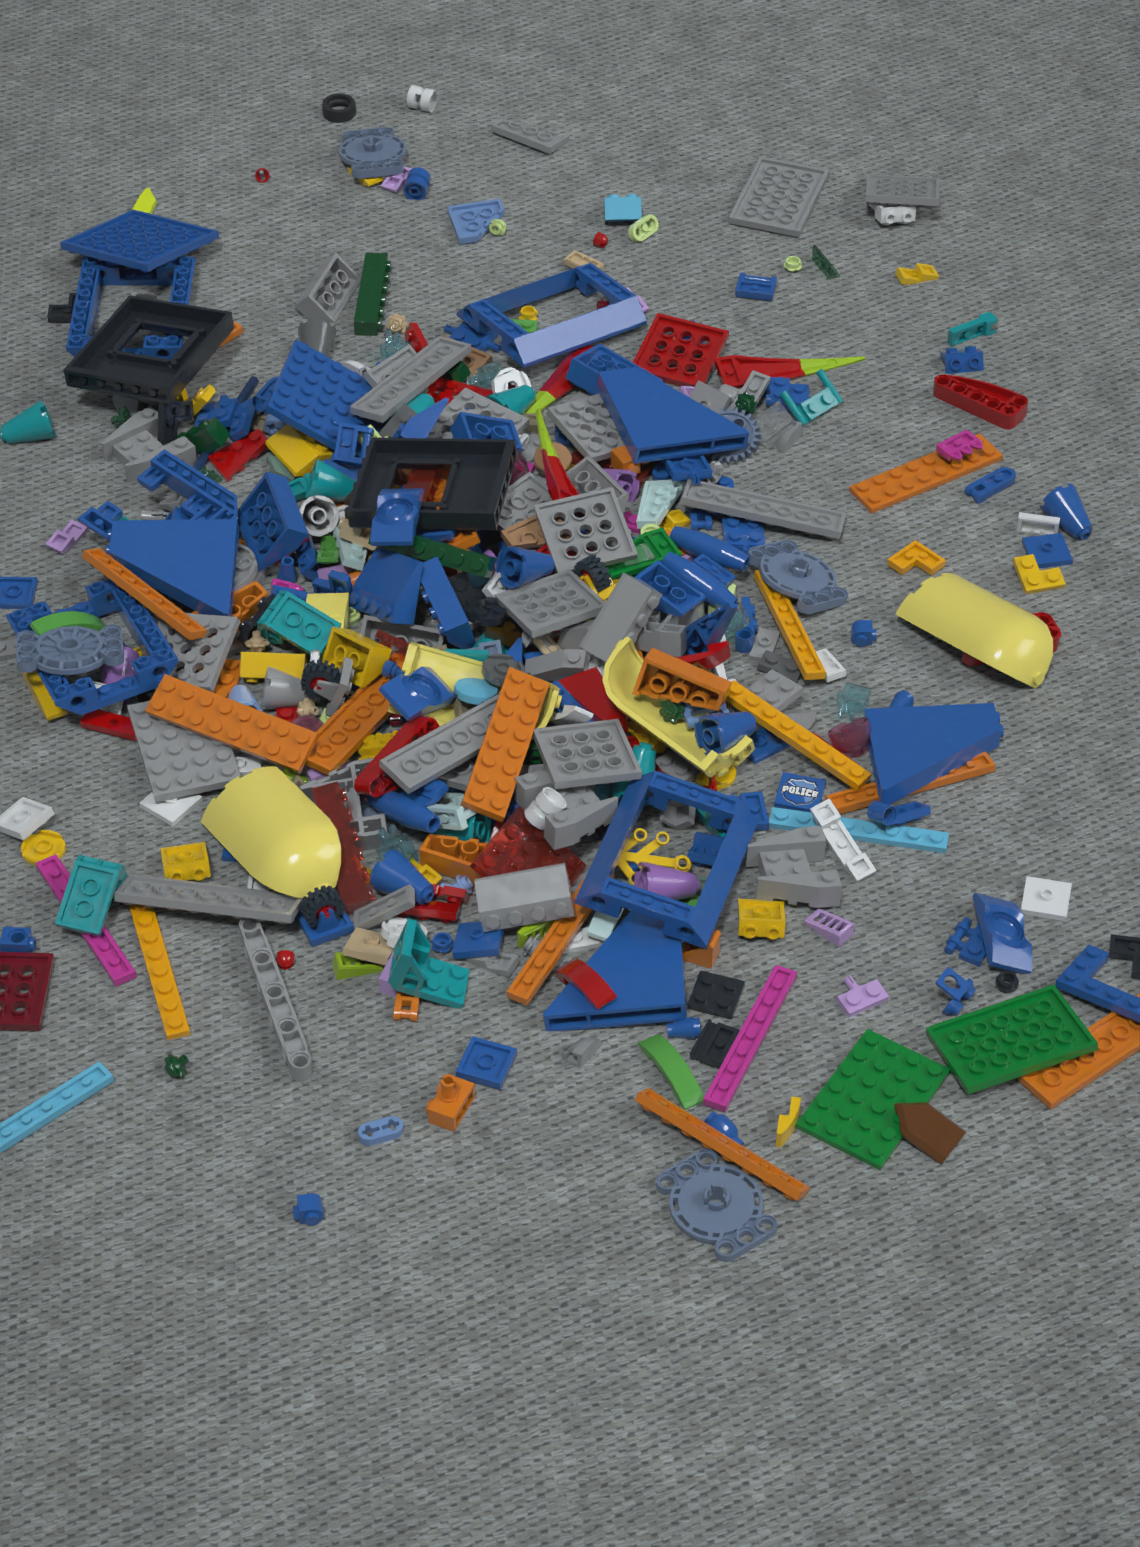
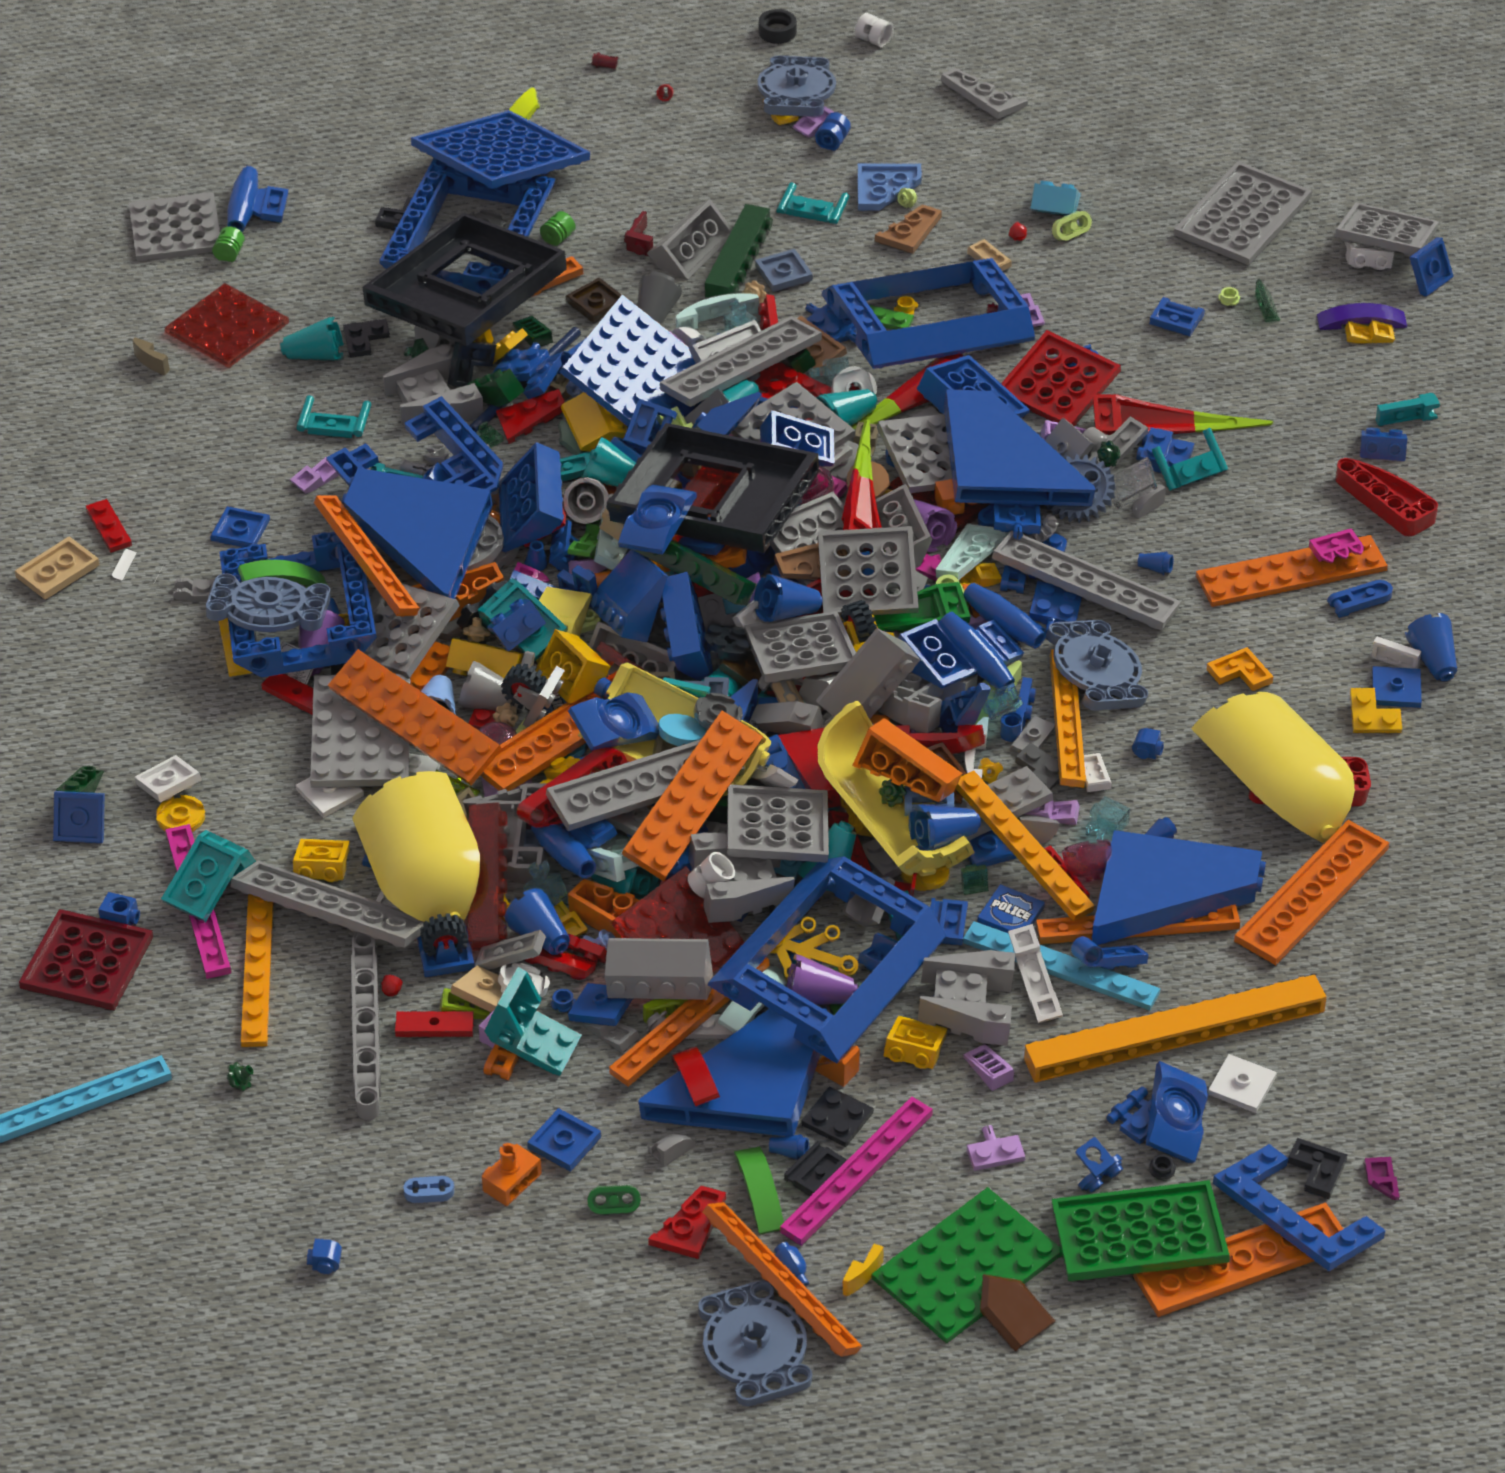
camera: 15 degrees right, 0 degrees up
(66, 413) = (359, 335): none -> black plate
(66, 491) = (330, 423): none -> teal plate
(201, 157) = (604, 61): none -> dark red pin
(210, 296) = (557, 228): none -> bright green piece
(221, 385) = (536, 331): none -> dark green slope
(262, 351) = (593, 299): none -> dark brown plate
(282, 298) = (635, 240): none -> dark red bracket
(297, 627) = (516, 623): none -> blue bracket
(335, 985) = (434, 1024): none -> red tile
(367, 341) = (713, 308): none -> light aqua slope
(415, 301) = (783, 270): none -> sand blue plate
(418, 249) = (811, 208): none -> teal plate
(510, 253) = (912, 230): none -> medium nougat wing
(548, 1105) = (614, 1202): none -> green plate
(623, 1115) = (689, 1227): none -> red wing
(744, 676) = (996, 768): none -> yellow plate
(760, 771) = (974, 879): none -> clear green tile
(812, 701) = (1062, 811): none -> lavender slope
(816, 484) = (1158, 562): none -> blue cone
(904, 259) = (1362, 314): none -> dark purple slope
(949, 213) = (1431, 266): none -> blue plate
(973, 864) = (1174, 1028): none -> light orange brick
(1043, 730) = (1311, 892): none -> orange plate

